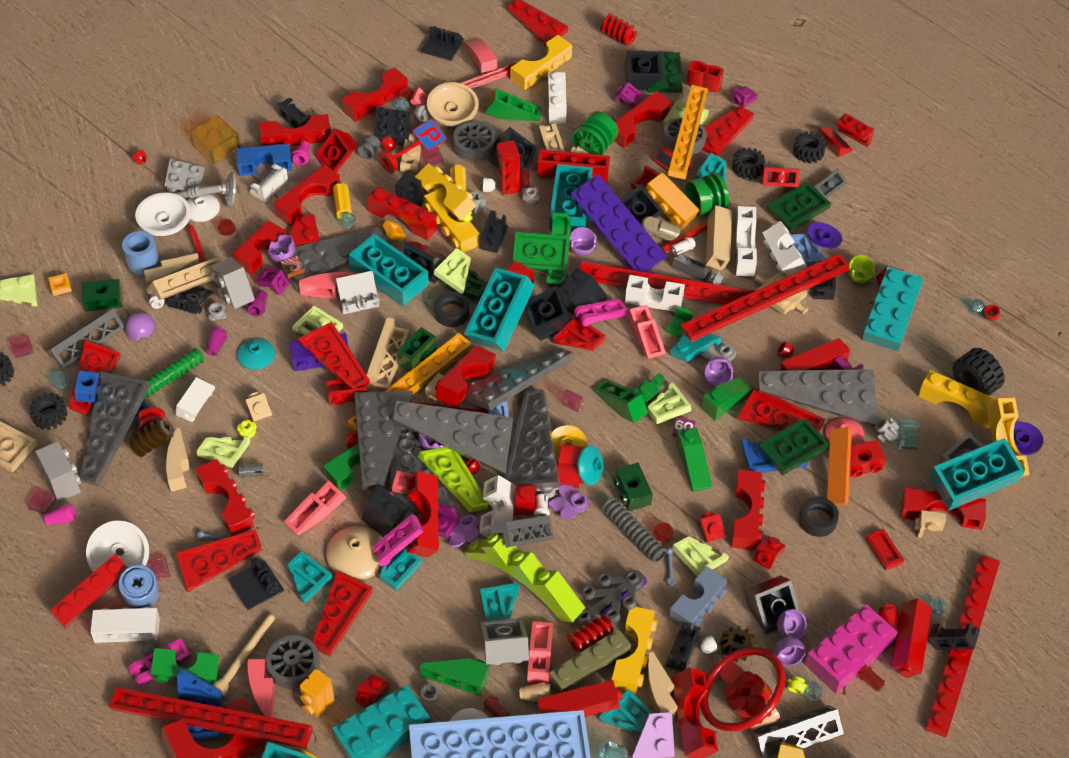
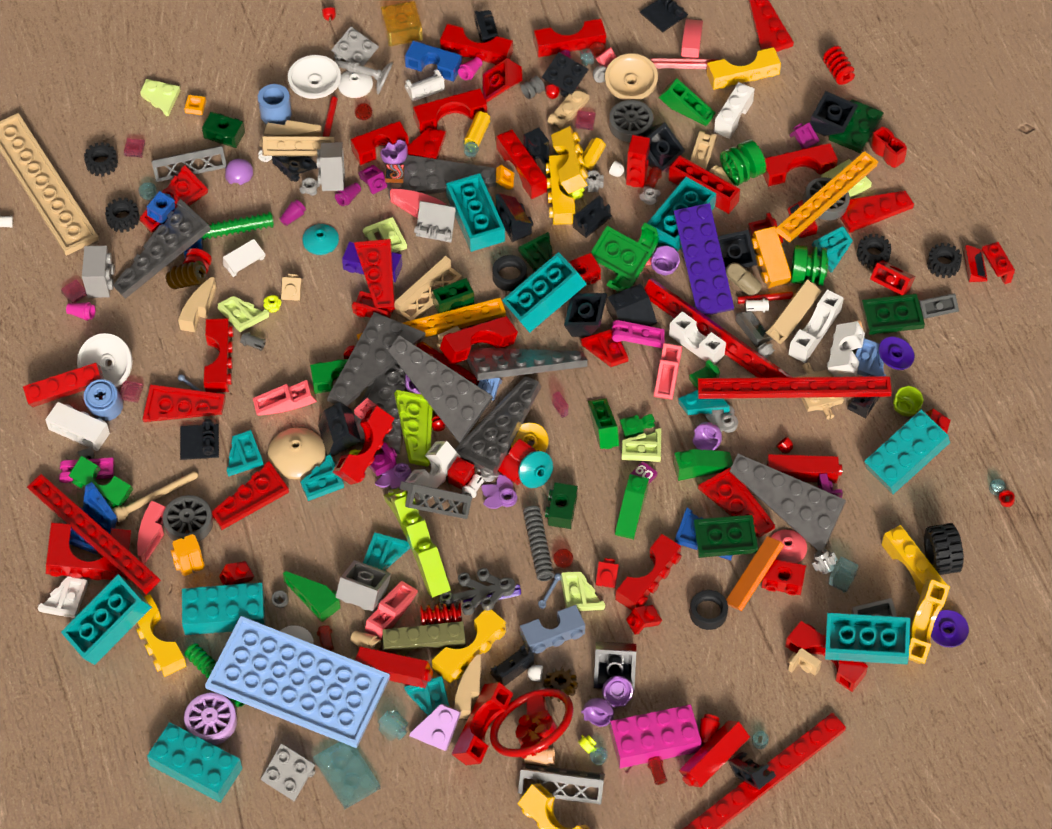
camera: 30 degrees right, 5 degrees up
(397, 539) = (327, 457): dark pink plate -> none
(427, 135) = (589, 97): red piece -> none
(454, 270) = (531, 238): yellowish green wing -> none
(743, 96) = (916, 183): magenta bracket -> none
(884, 549) = (749, 666): red tile -> none

